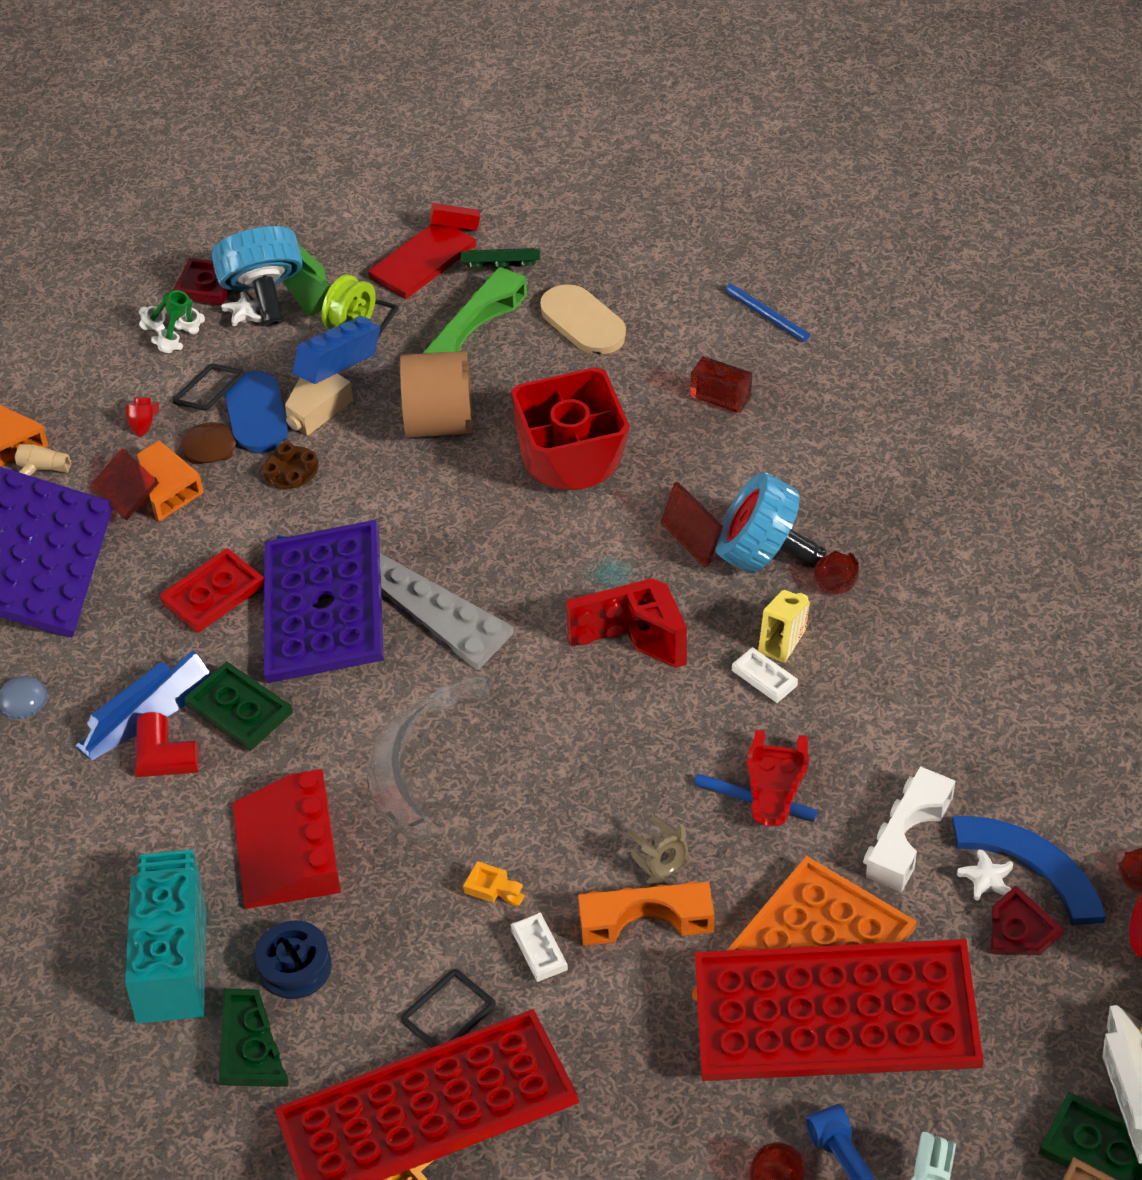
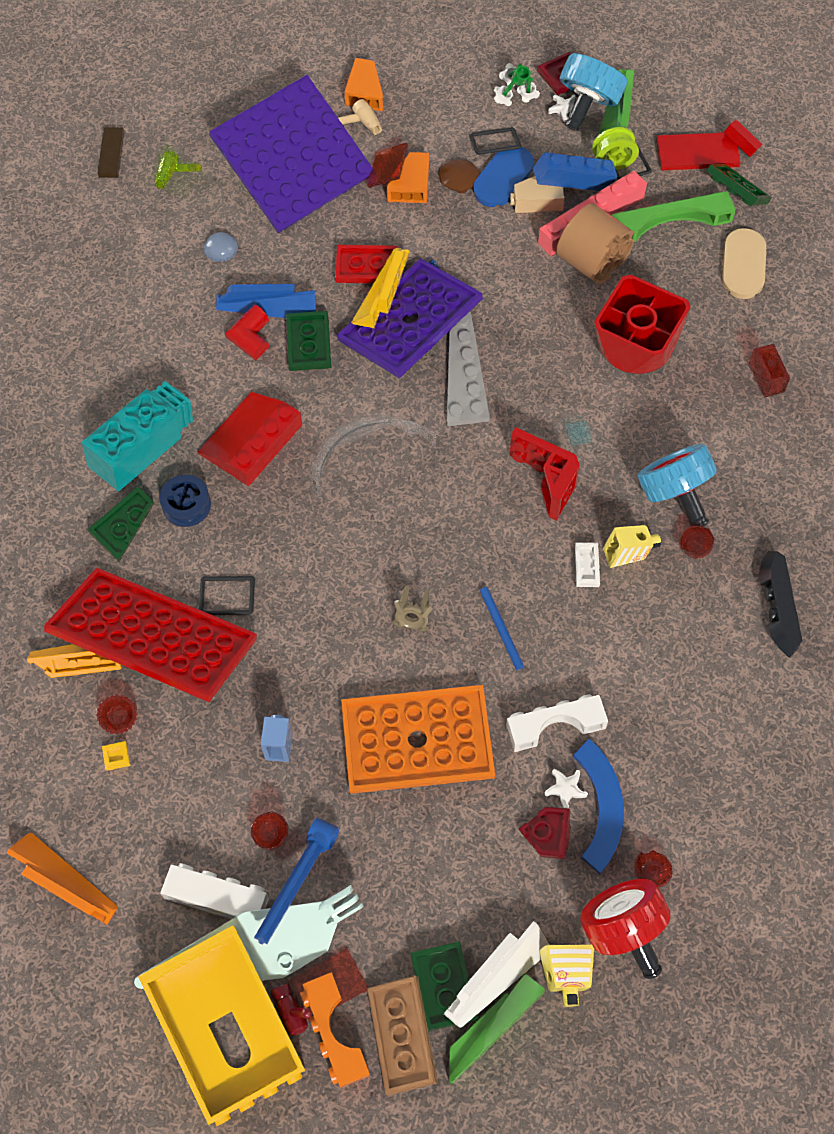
camera: 45 degrees right, 15 degrees up
(140, 414) = (443, 127): red plate -> none
(265, 595) = (383, 290): none -> yellow wedge
(290, 466) = (483, 224): reddish brown dish -> none
(384, 396) = (611, 199): none -> coral brick
(489, 882) = (314, 548): light orange plate -> none
(539, 947) = (300, 604): white plate -> none
(680, 1080) = (276, 738): none -> medium blue piece
(682, 905) = (347, 618): orange arch -> none
(691, 524) = (648, 441): clear red piece -> none
(775, 778) = (520, 625): red animal -> none
(837, 1010) = (393, 781): red plate -> none
(967, 561) = (778, 590): none -> black brick

